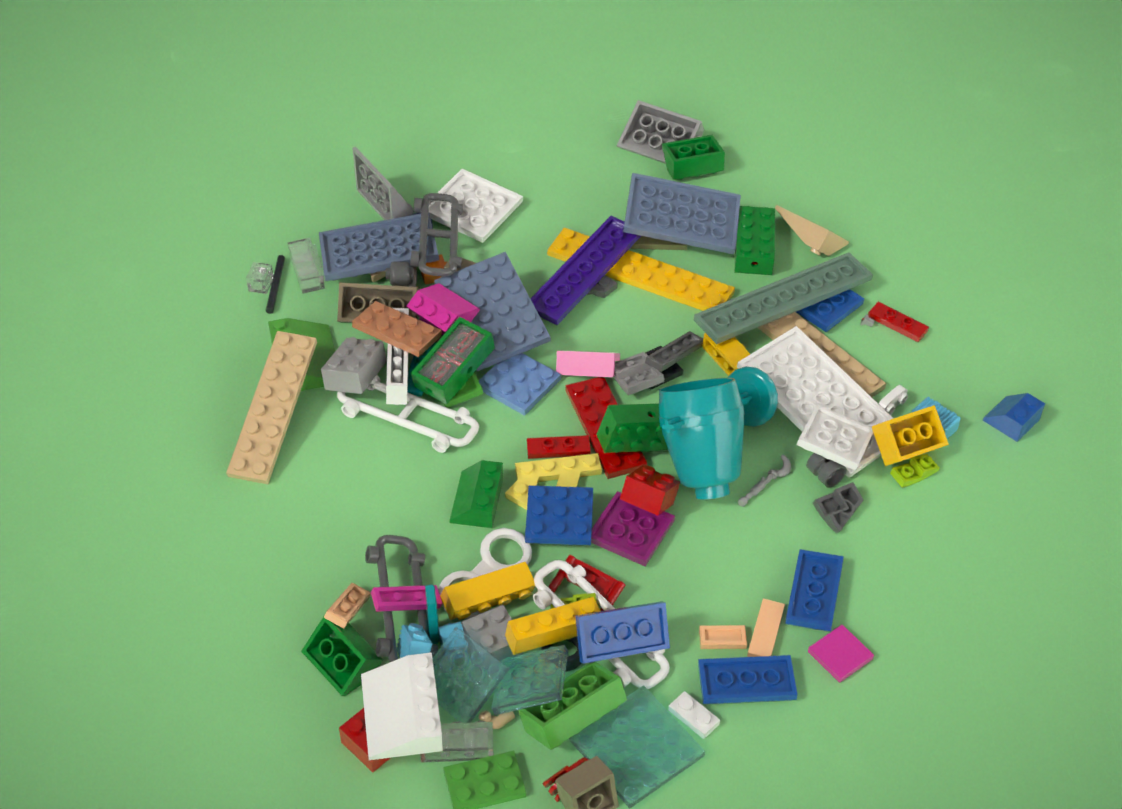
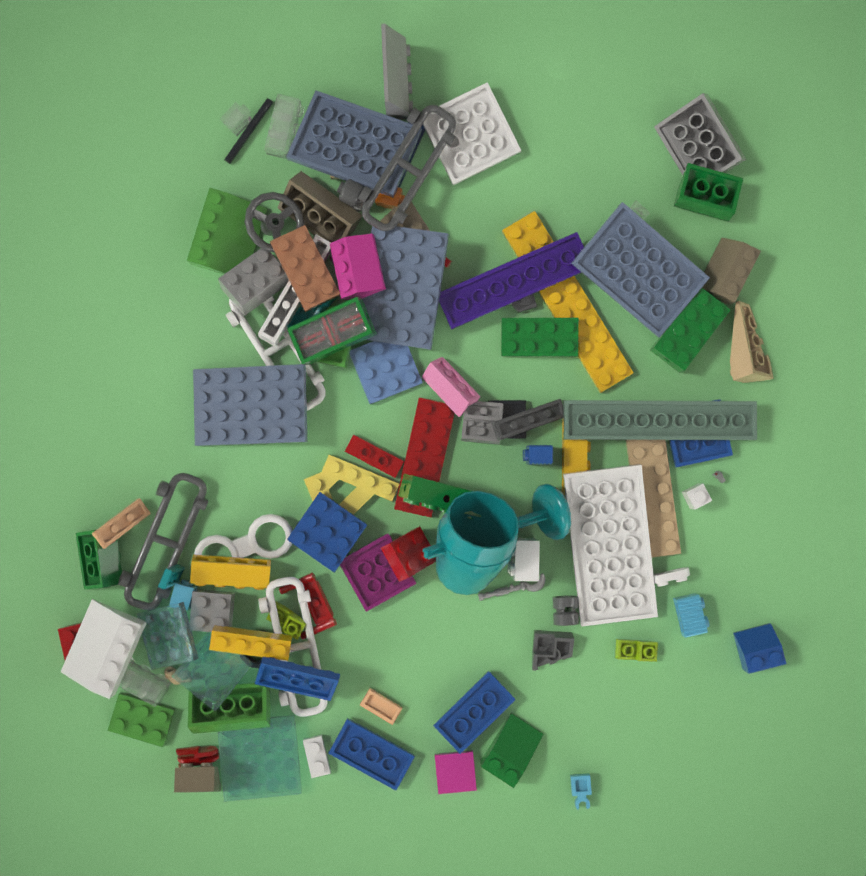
camera: 35 degrees right, 40 degrees up
(272, 408) = (166, 287): tan plate -> none
(342, 321) = (273, 222): none -> dark grey piece
(402, 598) = (163, 547): dark pink plate -> none
(412, 458) = (250, 405): none -> sand blue plate
(413, 640) = (145, 592): medium azure brick -> none
(478, 494) = (280, 470): green slope -> none
(636, 298) = (539, 336): none -> green plate
(704, 364) = (538, 454): none -> blue brick
(753, 188) = (729, 269): none -> dark tan slope
(760, 437) = (525, 560): none -> white brick
(766, 628) = (416, 720): light nougat tile -> none
(835, 437) = (587, 597): white plate -> none
(861, 337) = (696, 496): none -> white brick
(877, 606) = (511, 750): none -> green slope
(898, 321) = (745, 493): red plate -> none
(909, 435) = (650, 628): yellow brick -> none
(967, 598) = (581, 787): none -> medium azure plate

